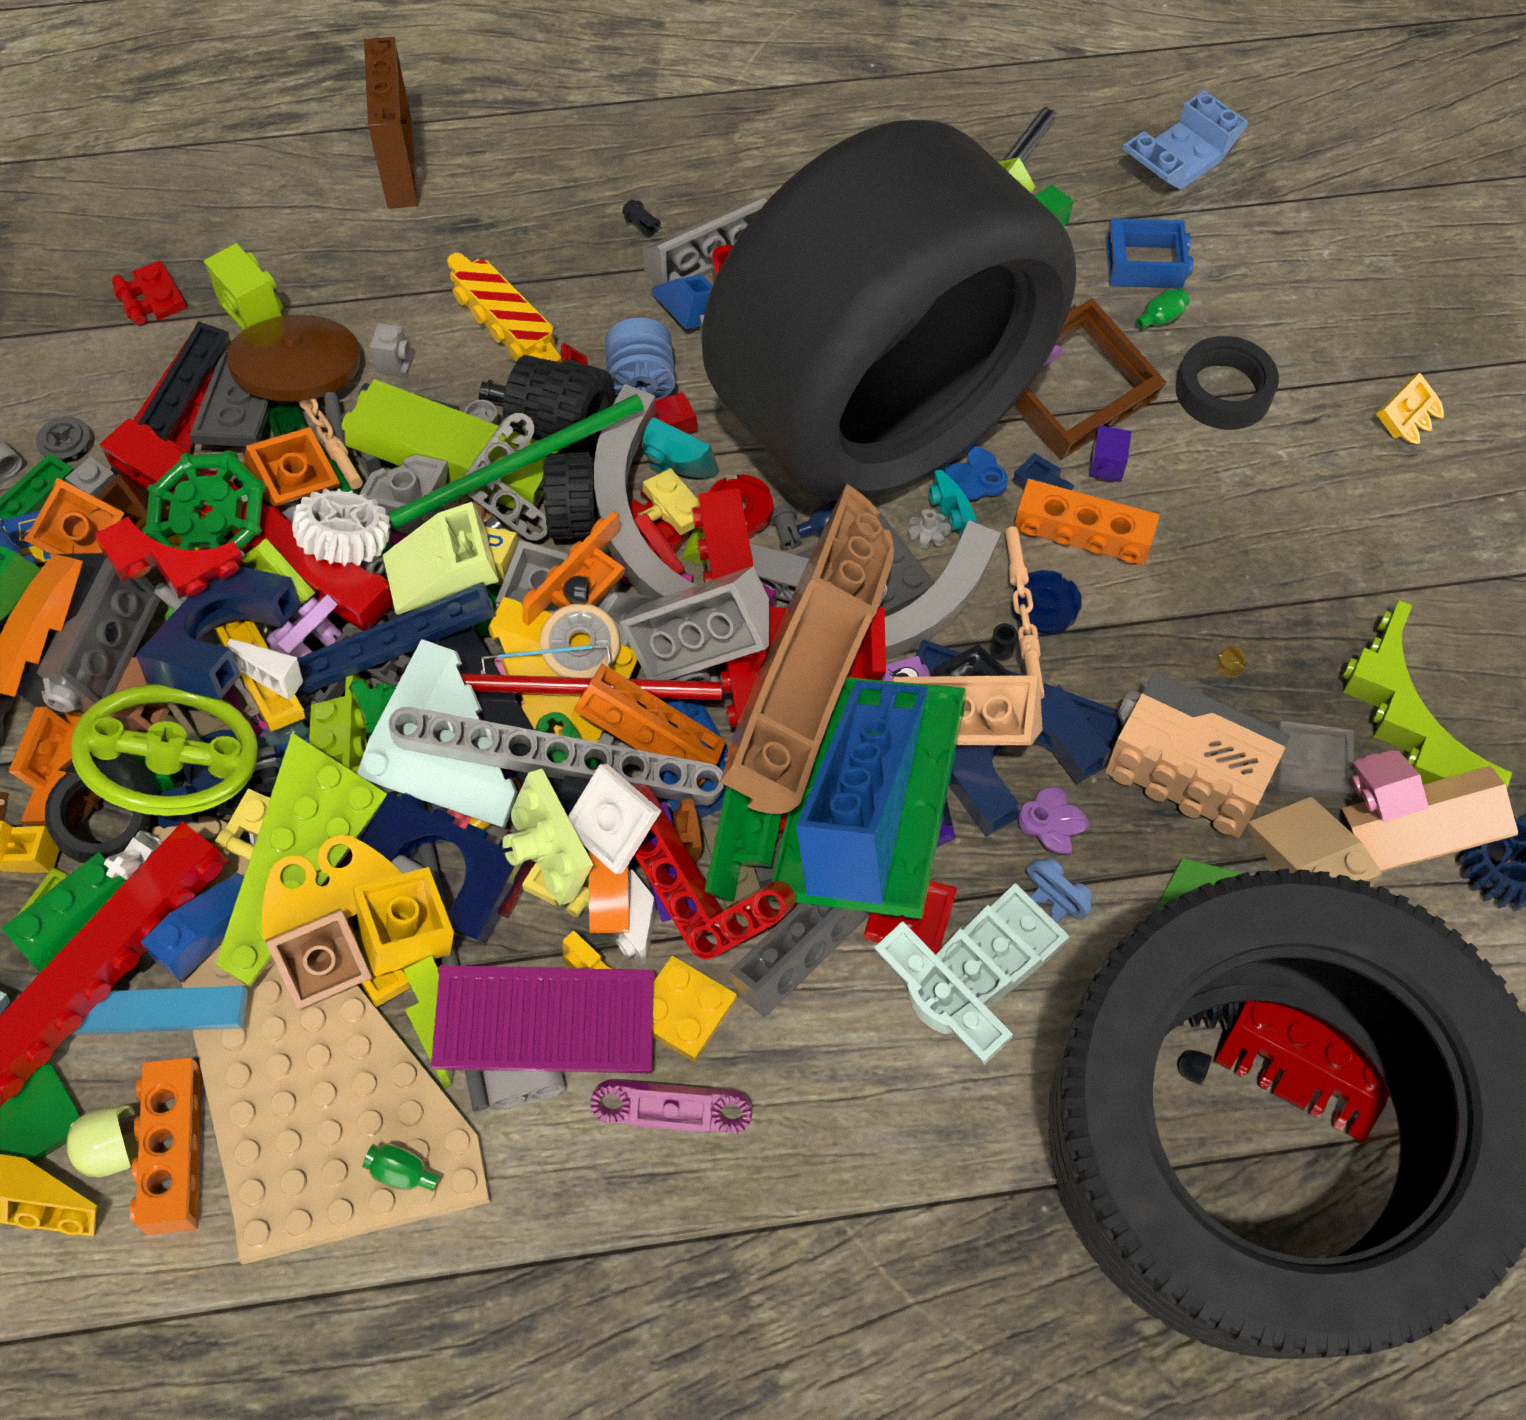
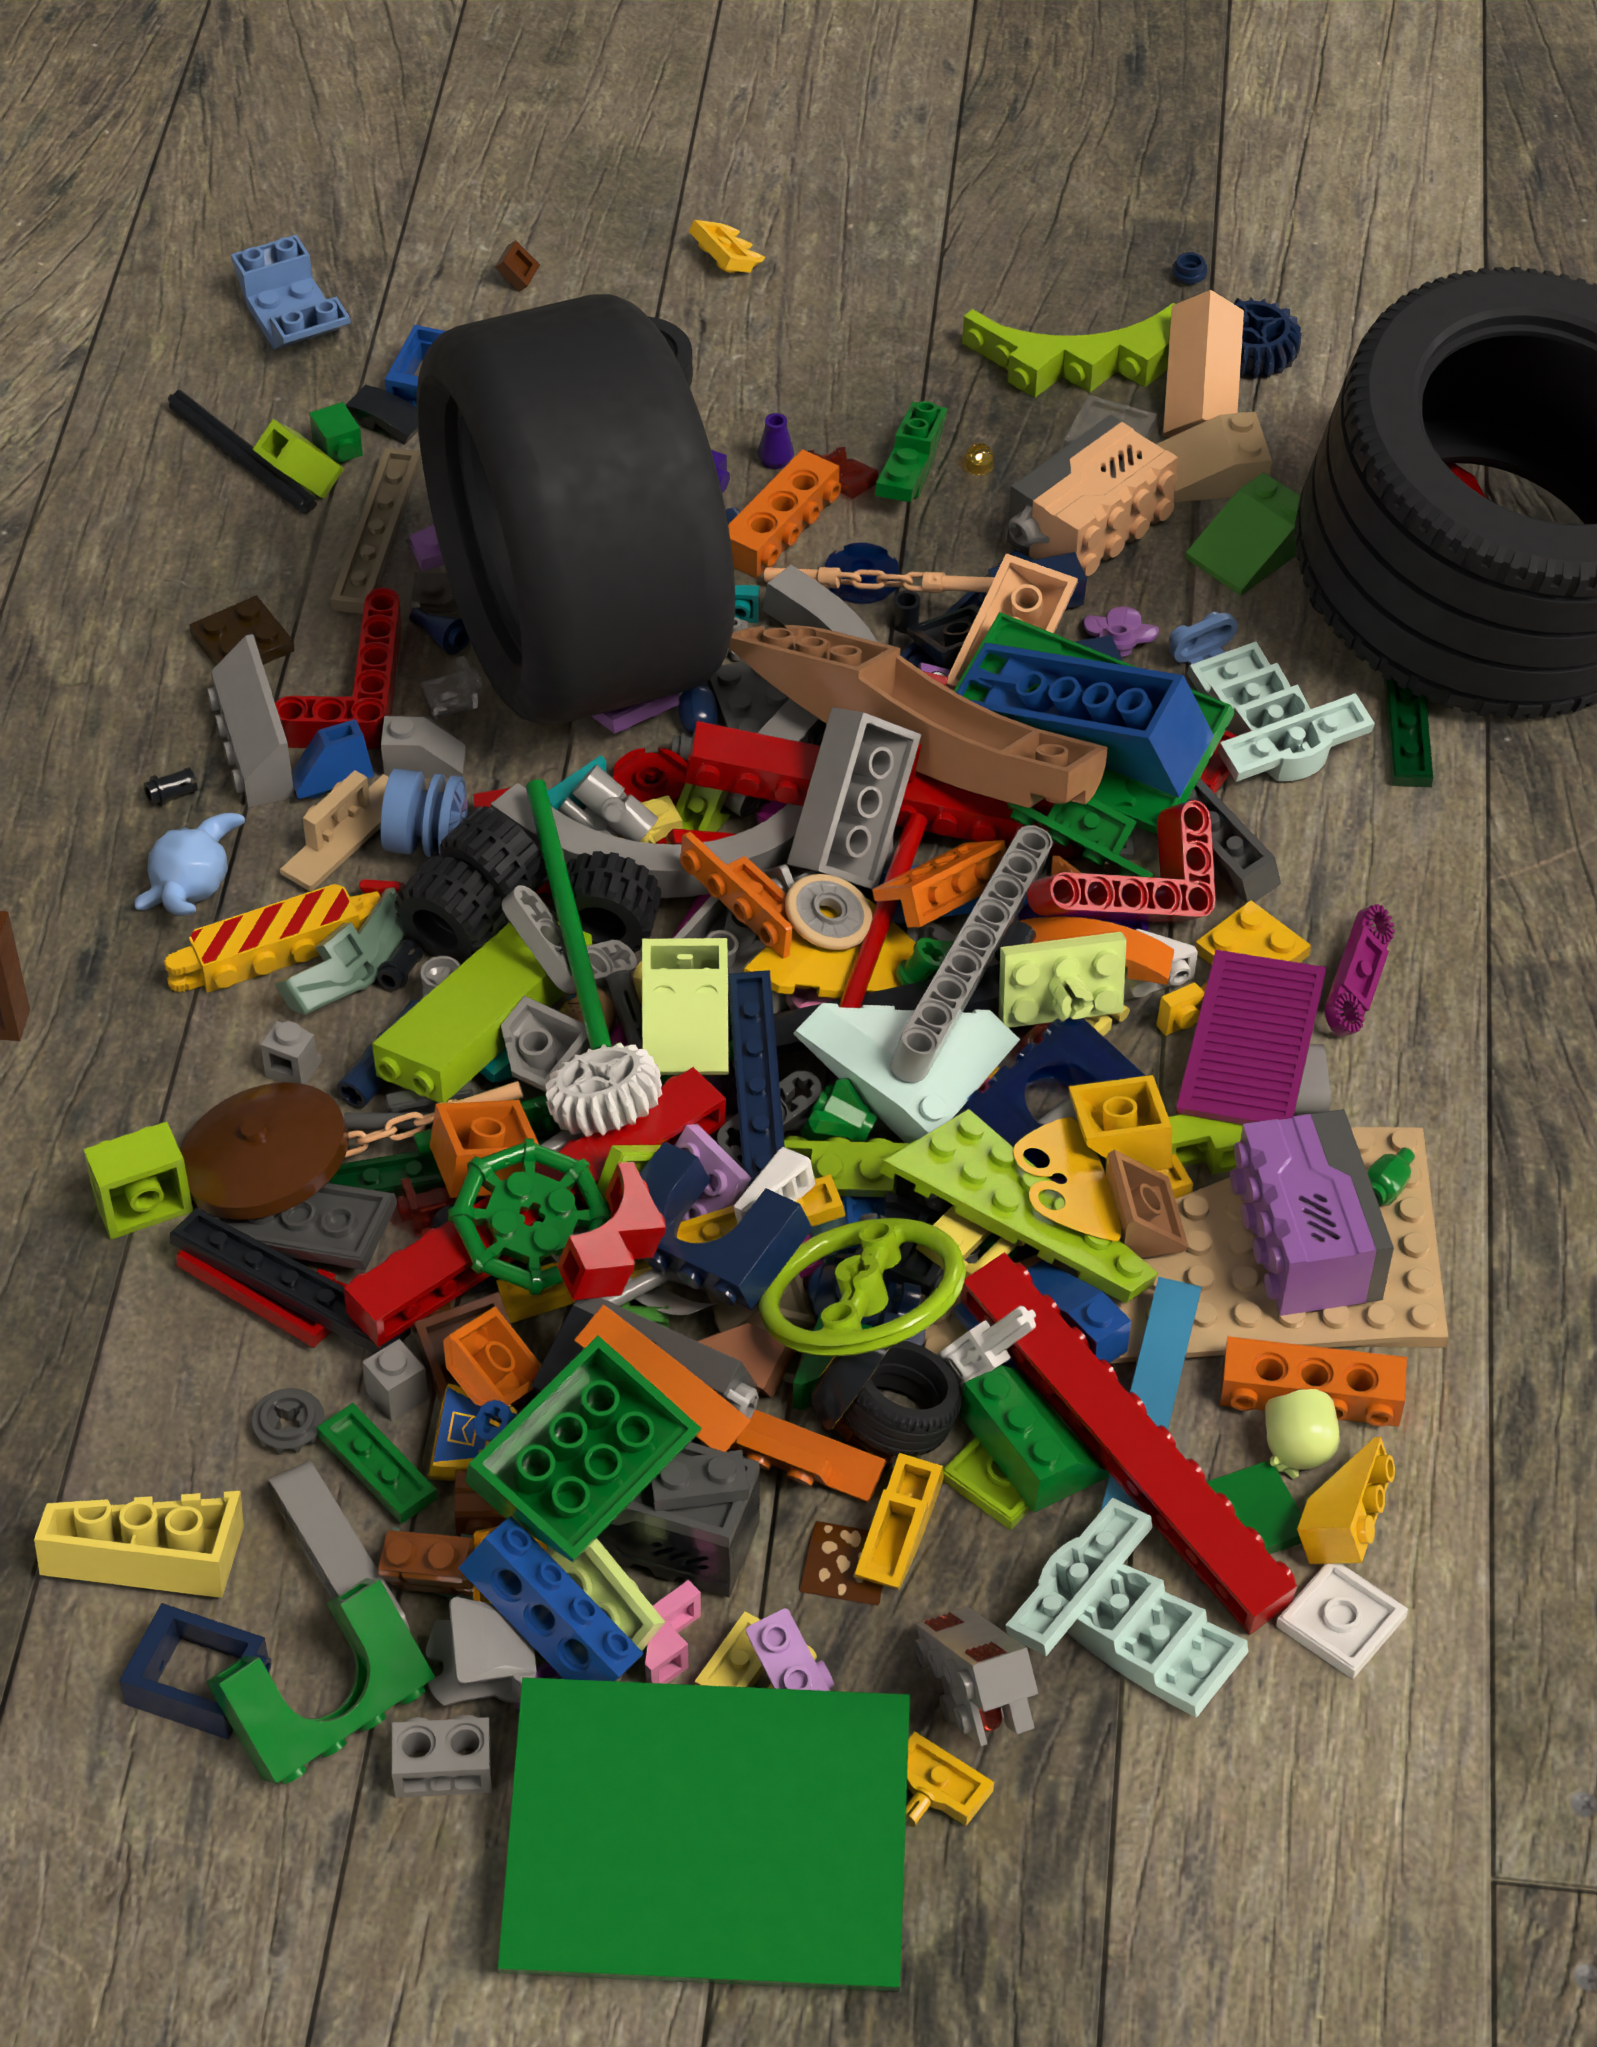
camera: 75 degrees left, 10 degrees down
(156, 286) = (61, 1299): red plate -> none
(320, 1099) = (1311, 1212): none -> medium lavender piece
(483, 359) = (348, 958): none -> sand green plate
(555, 243) = (188, 865): none -> light blue piece
(577, 589) = (775, 886): black hinge -> none
(608, 660) = (836, 934): medium azure piece -> none
(612, 818) = (1074, 899): white tile -> none
(619, 306) = (337, 829): none -> tan bracket
(653, 466) = (608, 807): none -> light grey pin
(1027, 1103) = (1408, 737): none -> dark green tile
(1090, 237) = (378, 407): none -> black slope
(1166, 561) = (853, 475): none -> clear red slope
(1170, 499) = (775, 444): none -> dark purple cone
(1207, 606) = (912, 452): none -> green slope
(1304, 273) = (517, 266): none -> reddish brown plate
(1389, 785) = (1167, 377): bright pink hinge -> none

